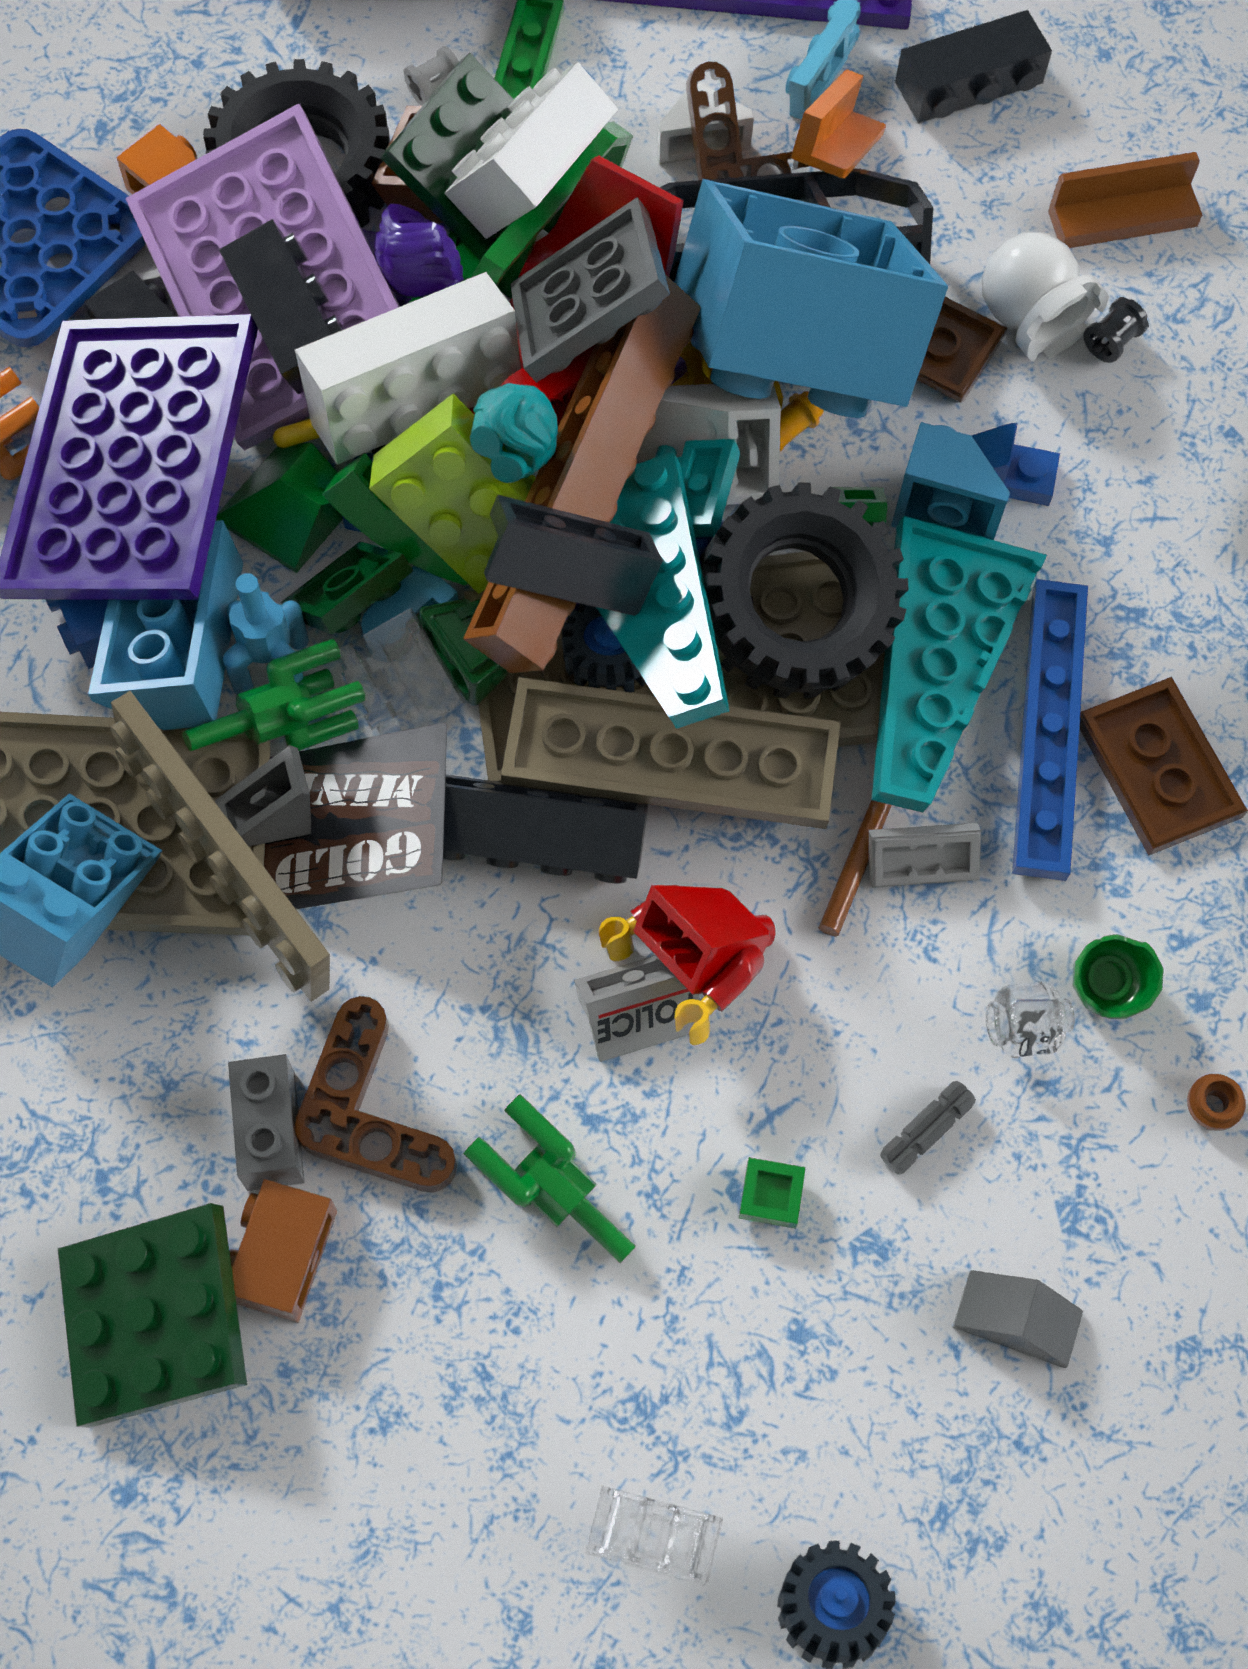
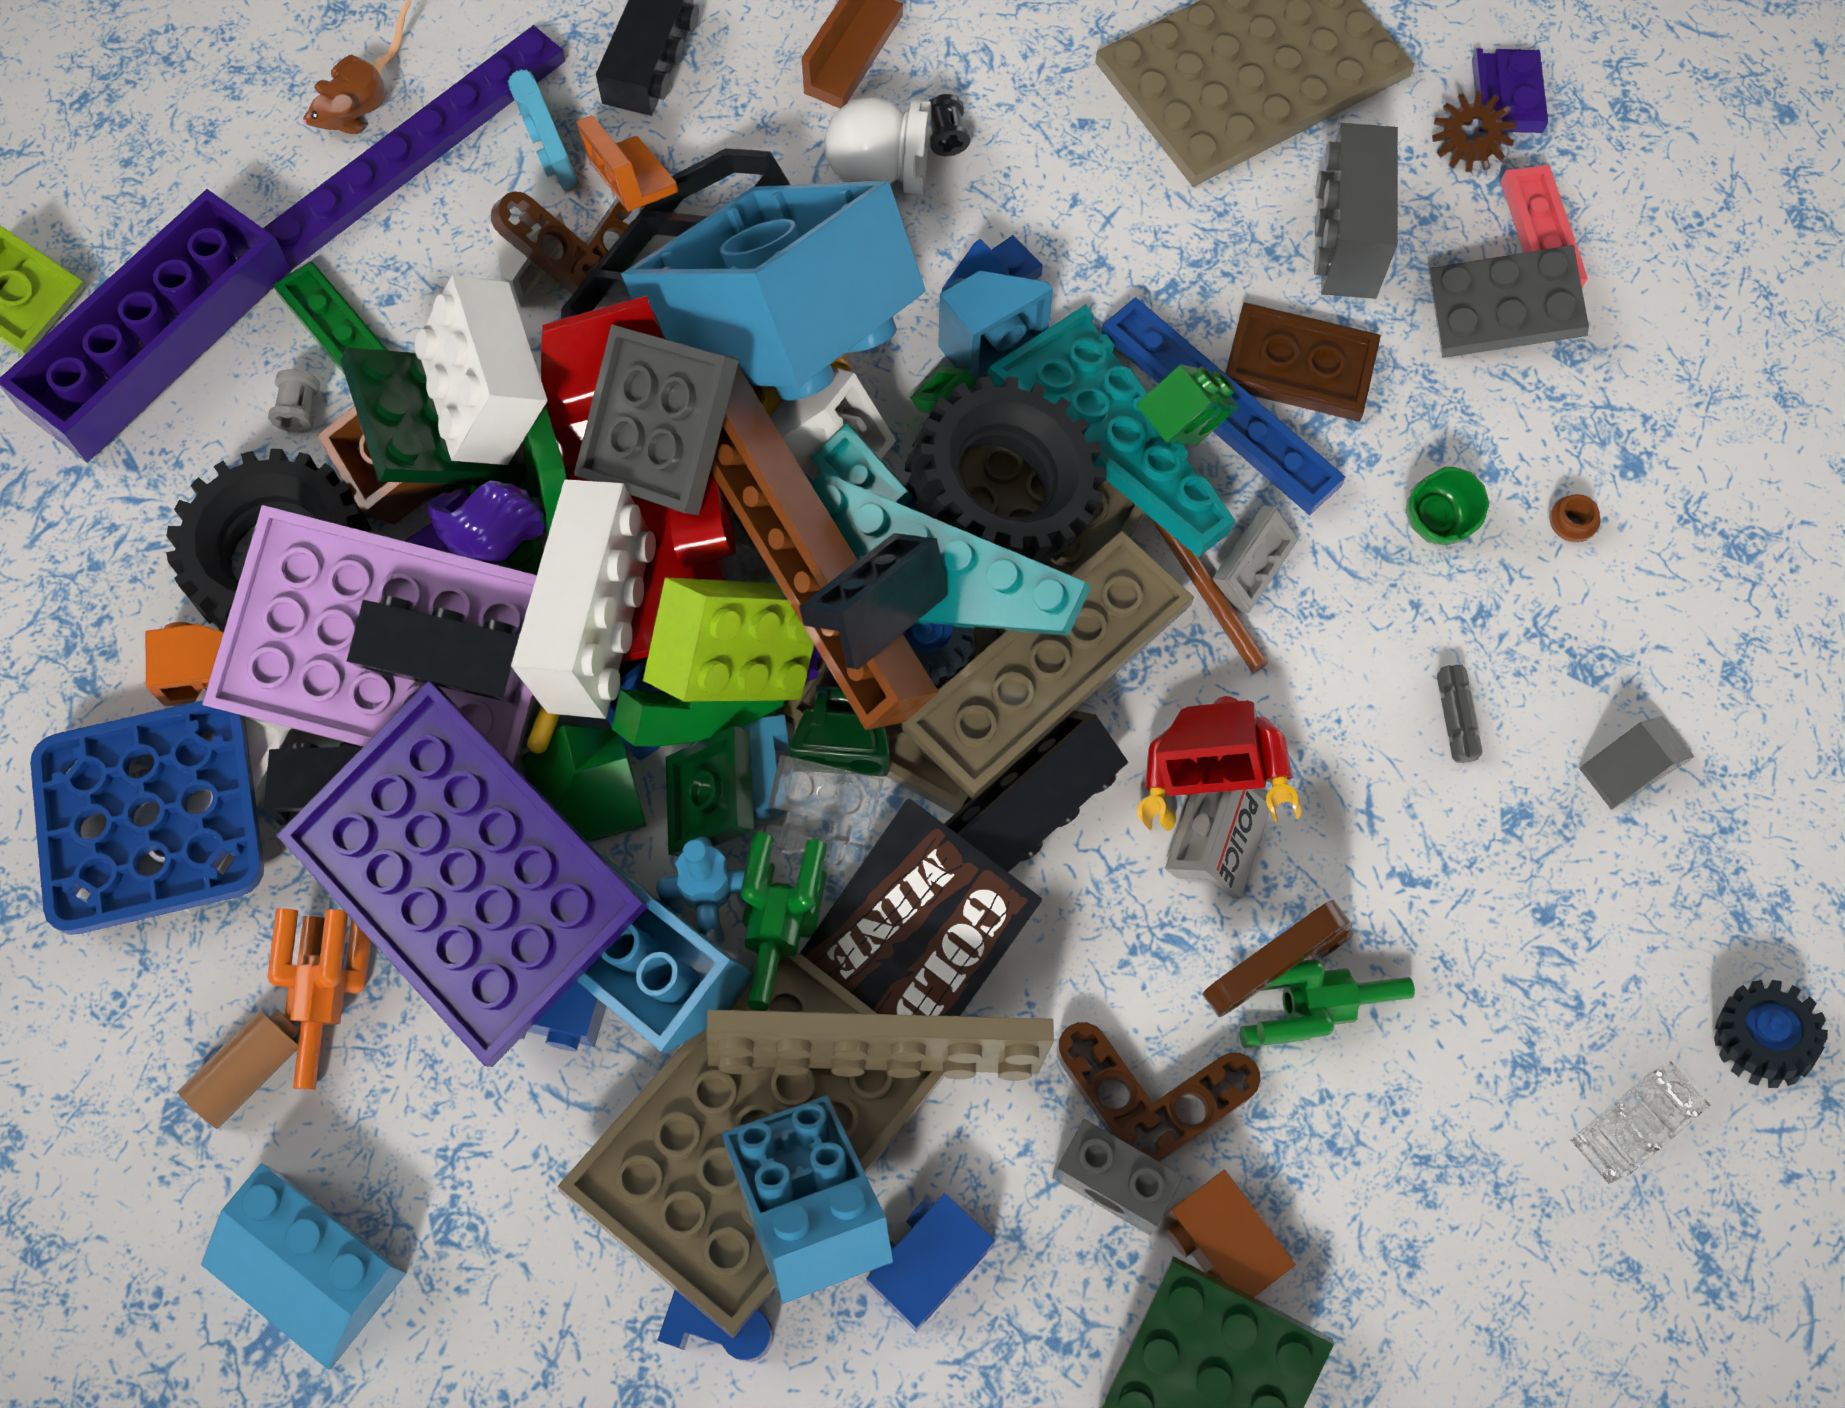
camera: 50 degrees left, 0 degrees up
(90, 1027) = (930, 1260): none -> blue brick
(270, 801) = (858, 972): dark grey slope -> none
(522, 422) = (737, 556): teal hair -> none
(585, 1117) = (1312, 936): none -> reddish brown beam
(772, 1192) = (1435, 853): green plate -> none
(1005, 689) = (1189, 404): none -> green brick
(1029, 1019) = (1435, 586): clear head -> none

